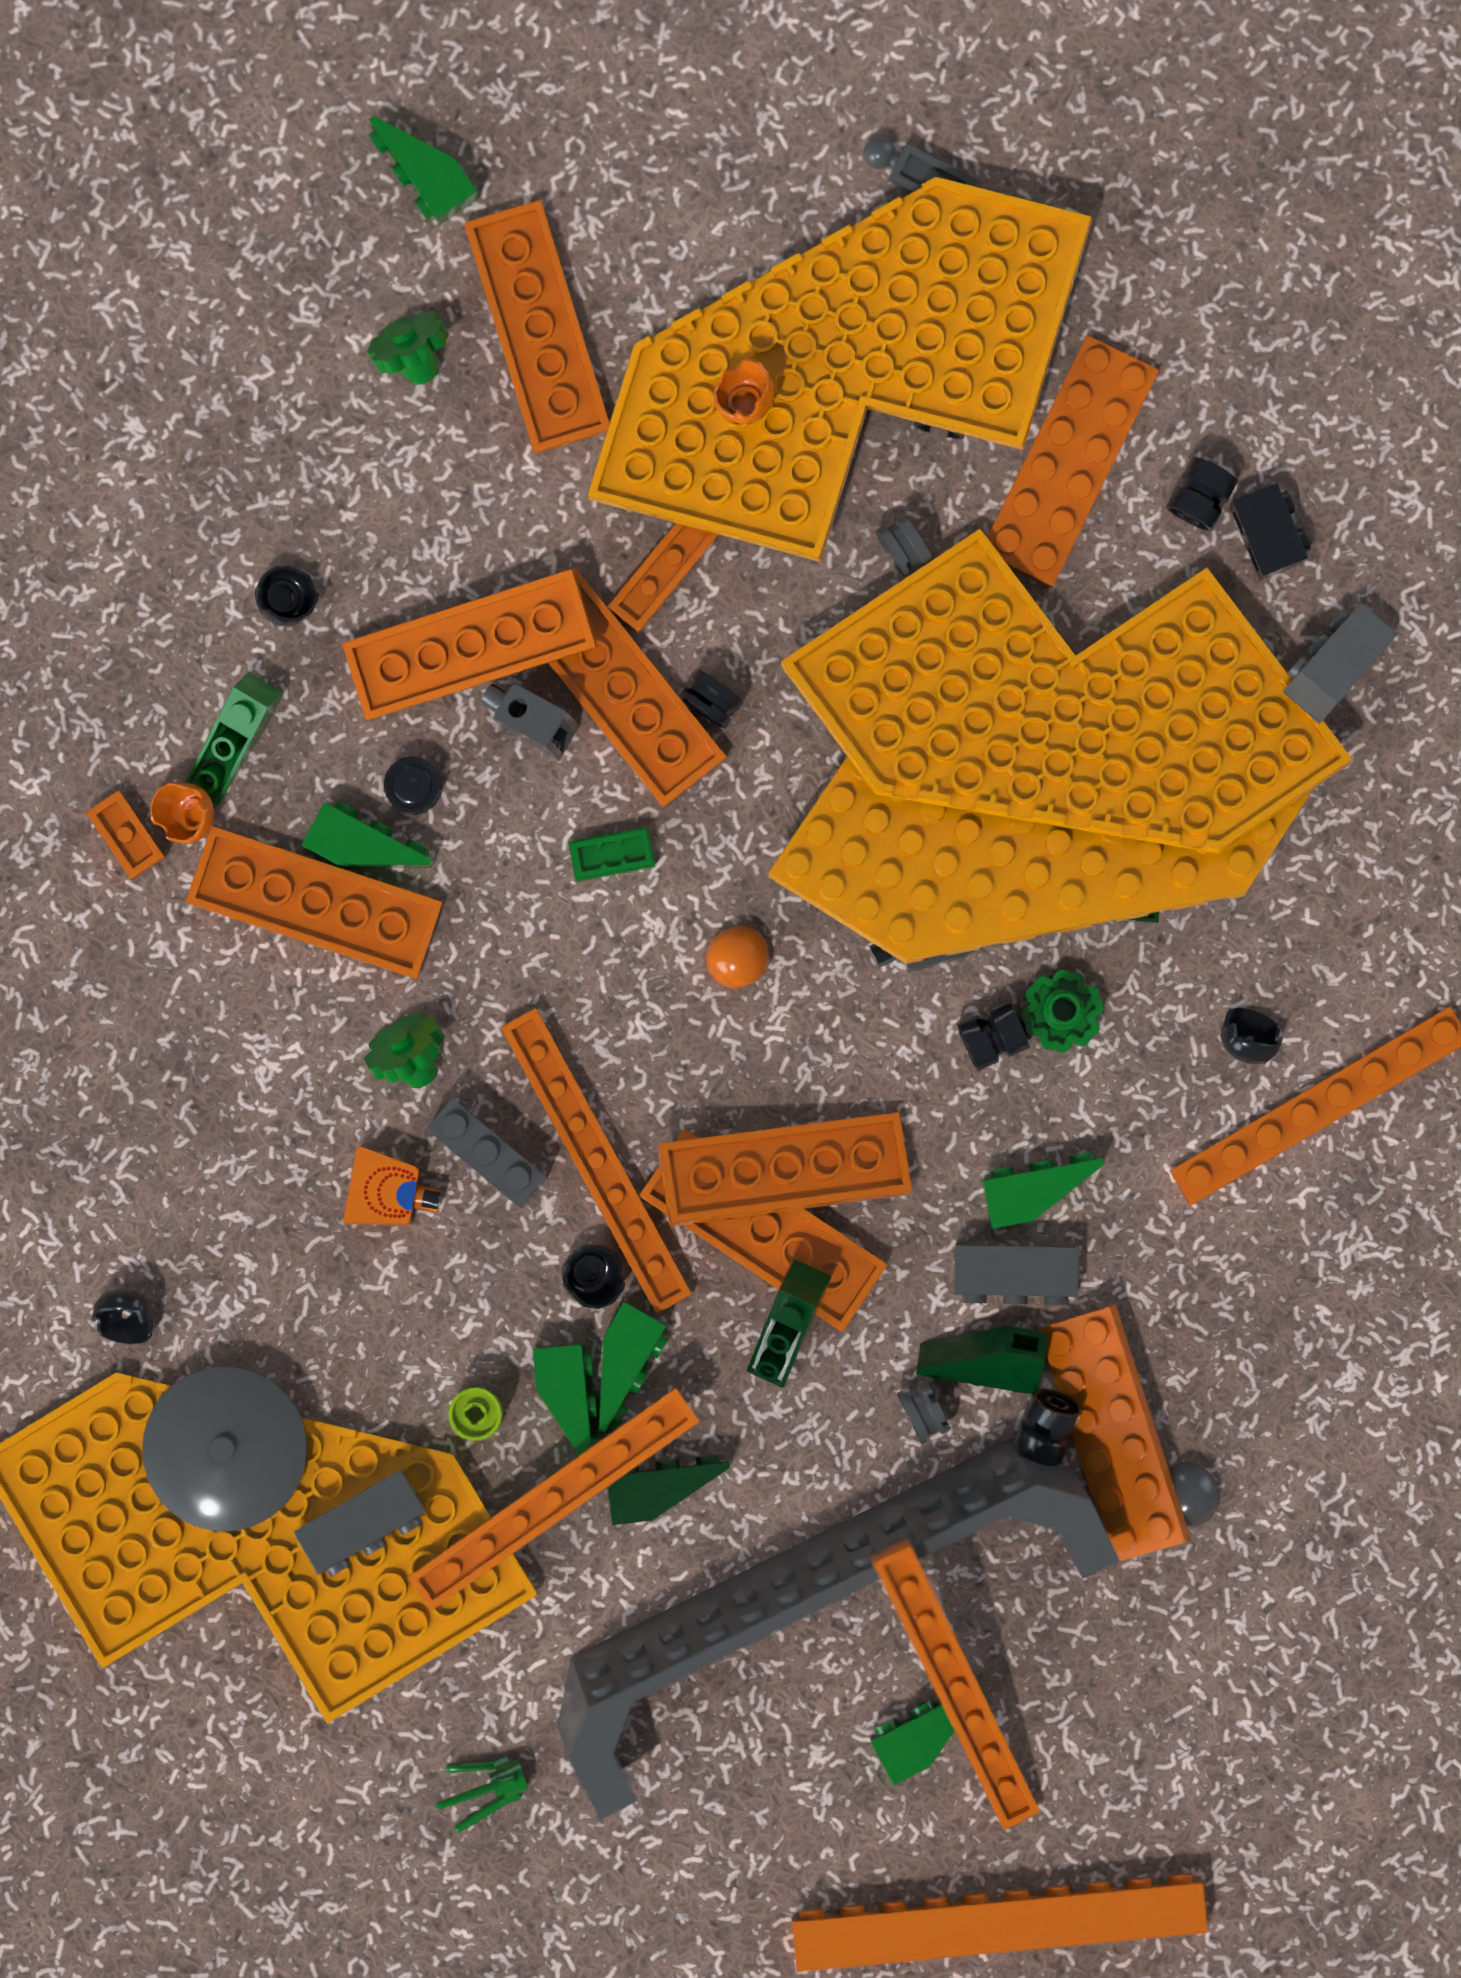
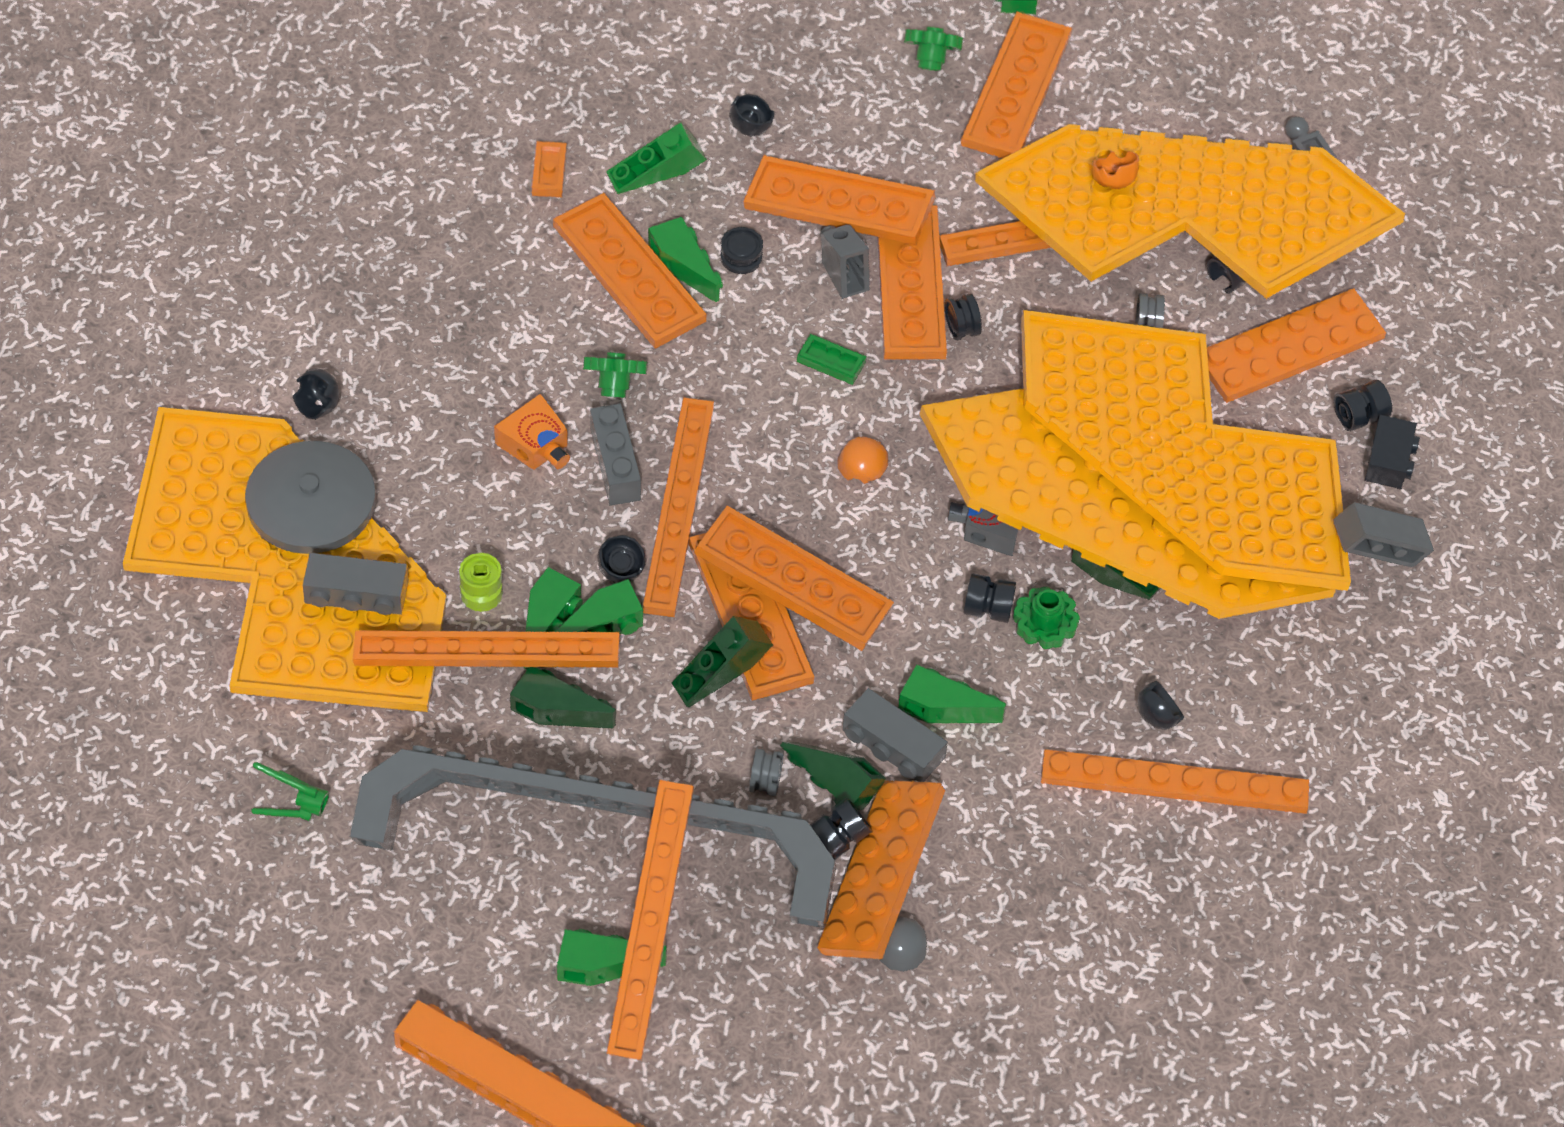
camera: 30 degrees right, 30 degrees down
(182, 811) = (593, 174): orange hair -> none

